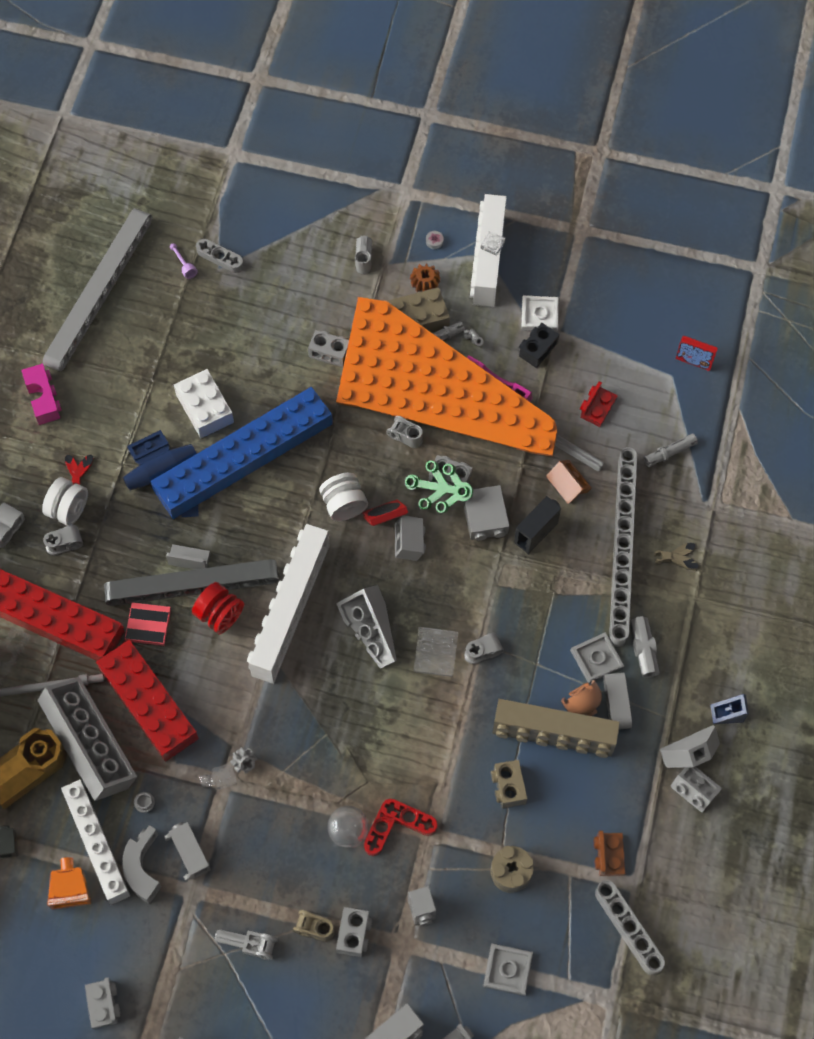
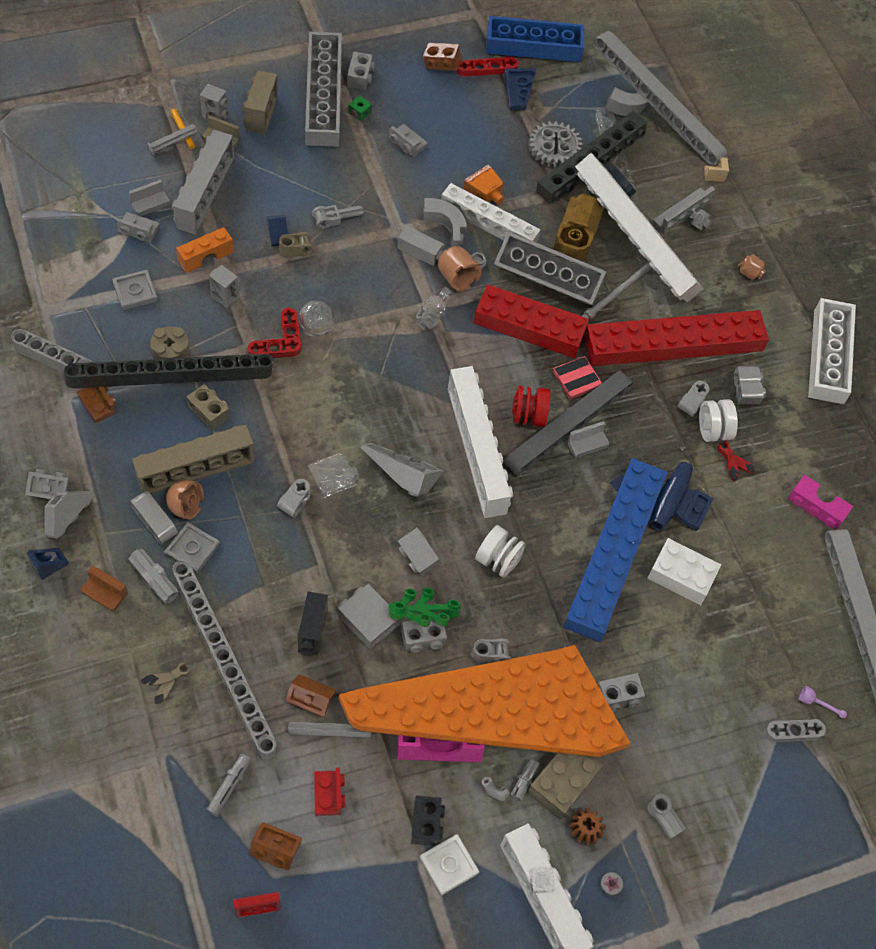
camera: 140 degrees right, 5 degrees down
(173, 797) = (459, 268): none -> nougat cylinder
(318, 963) = (277, 227): none -> dark blue slope
(349, 931) = (265, 254): light grey brick -> none
(385, 512) = (455, 560): red tile -> none
(412, 970) = (192, 253): none -> orange arch
(535, 842) = (168, 370): none -> pearl dark grey beam
(658, 391) = (275, 846): none -> dark orange bracket
(691, 661) = (104, 588): none -> dark orange panel

